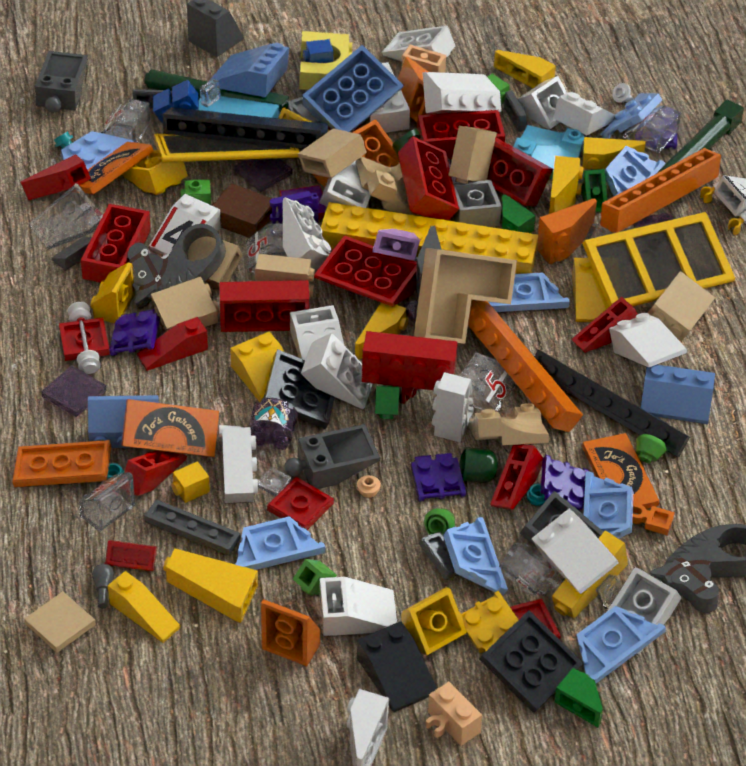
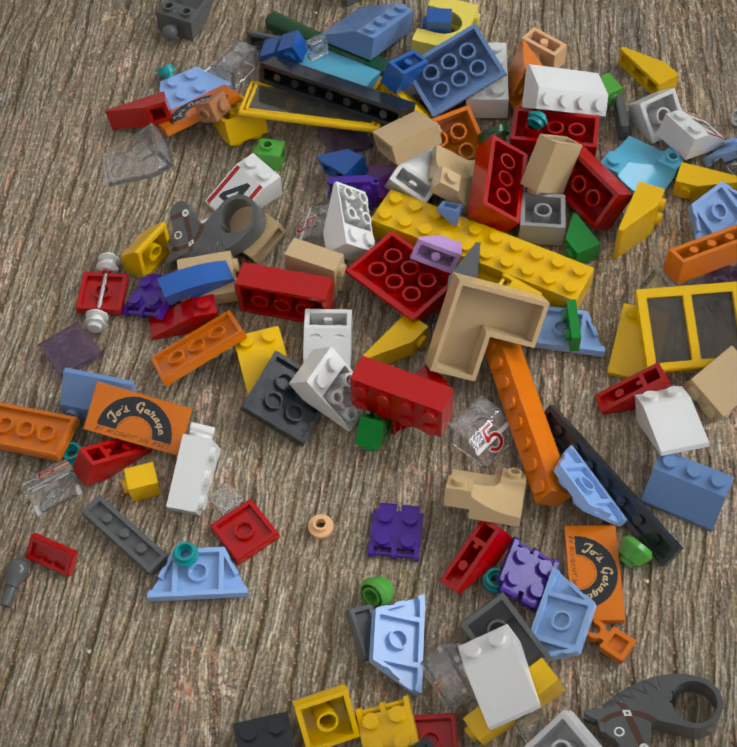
camera: 20 degrees right, 10 degrees up
(71, 254) = (133, 195): dark grey slope -> none
(111, 241) = (174, 181): red brick -> none
(132, 161) = (213, 108): none -> nougat bracket
(141, 606) = (39, 620): yellow slope -> none
(177, 307) = (195, 280): none -> blue slope
(199, 364) = (198, 348): none -> orange tile
(213, 582) = (122, 608): yellow slope -> none
(243, 210) = (305, 179): reddish brown brick -> none
(258, 526) = (182, 548): none -> teal plate
(273, 422) = (244, 433): clear purple brick -> none
(275, 186) = (343, 163): none -> blue slope
(288, 633) = (169, 693): orange slope -> none
(306, 98) = (403, 71): none -> blue slope
(309, 576) = (221, 629): bright green brick -> none
(333, 456) = (296, 485): dark grey slope -> none
(355, 606) = (252, 676): white slope -> none
(394, 209) = (450, 211): none -> medium blue slope
(434, 39) = (558, 24): white slope -> none
(444, 121) = (537, 119): none -> teal plate
(452, 406) = (433, 457): white wedge -> none
(478, 465) = (441, 530): dark green helmet -> none
(535, 283) = (572, 331): none -> green plate
(565, 230) = (626, 268): orange slope -> none
(594, 187) = (674, 224): green slope -> none
(594, 408) = (586, 489): none -> light blue wing

